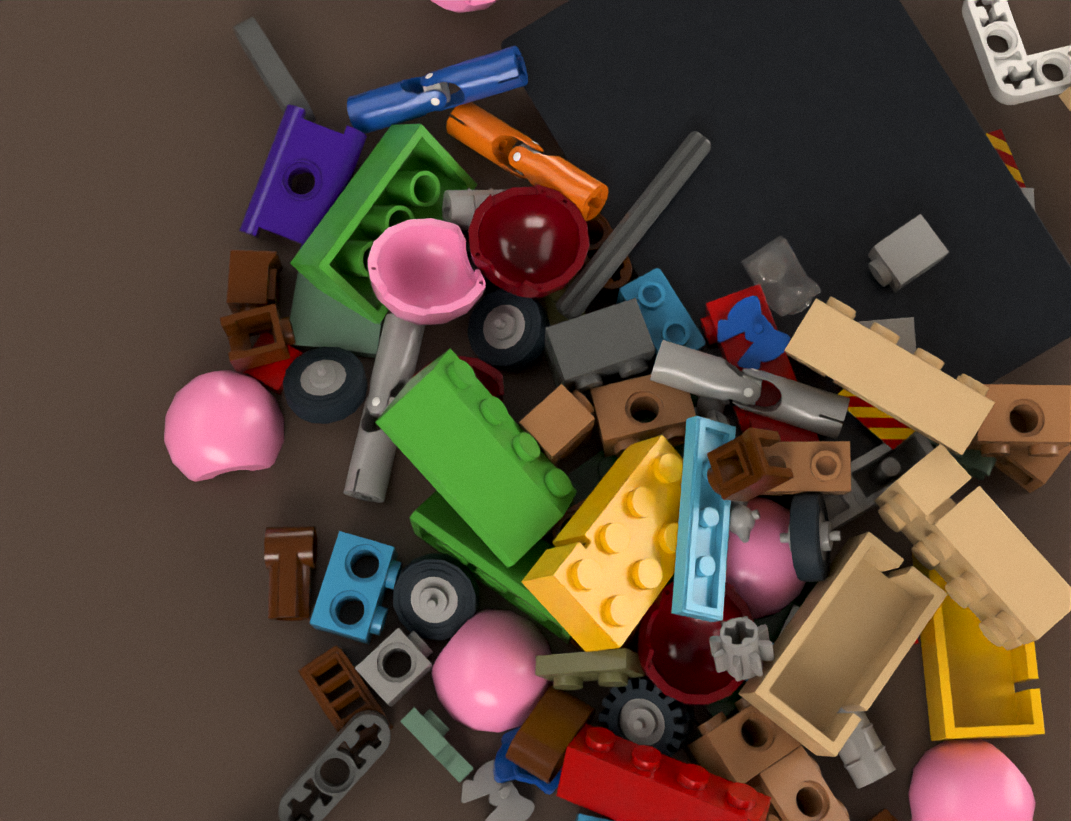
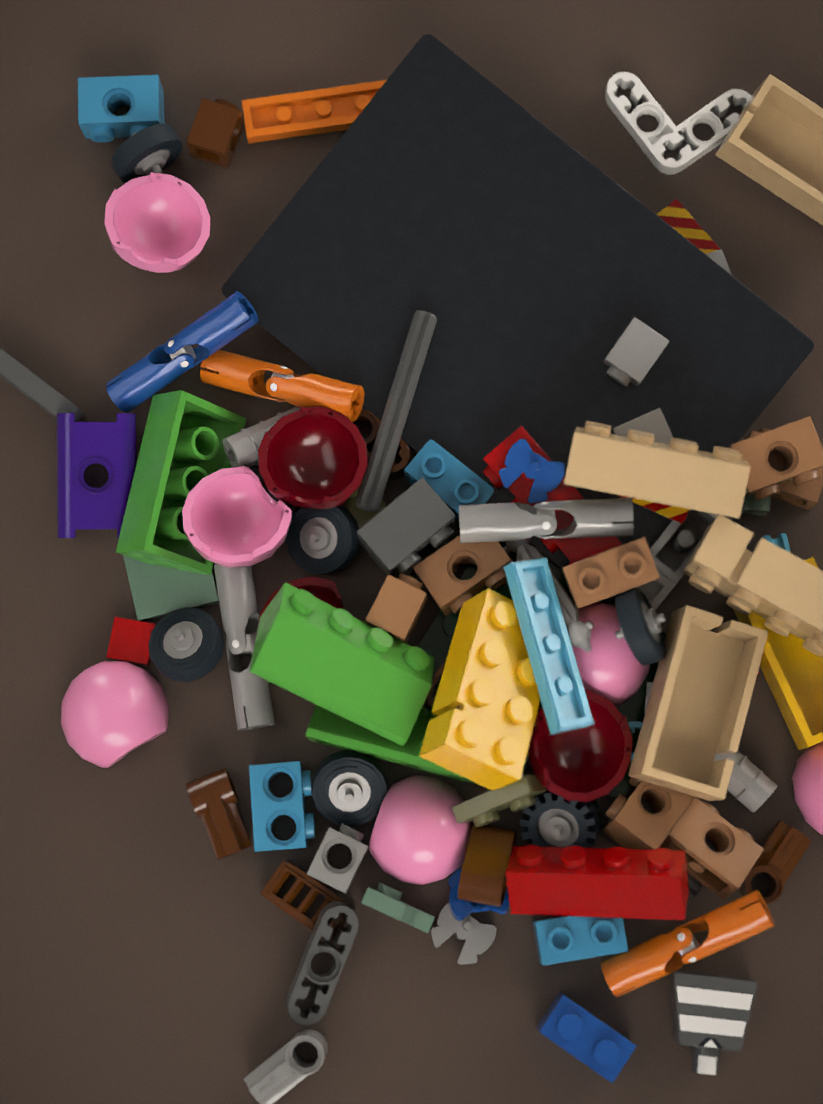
camera: 15 degrees left, 5 degrees up
(249, 323) = (95, 627): reddish brown window -> none
(253, 280) = (90, 581): reddish brown window -> none
(741, 648) = (617, 740): light grey gear -> none
(758, 477) = (563, 595): reddish brown window -> none
(781, 277) = (537, 411): clear bracket -> none

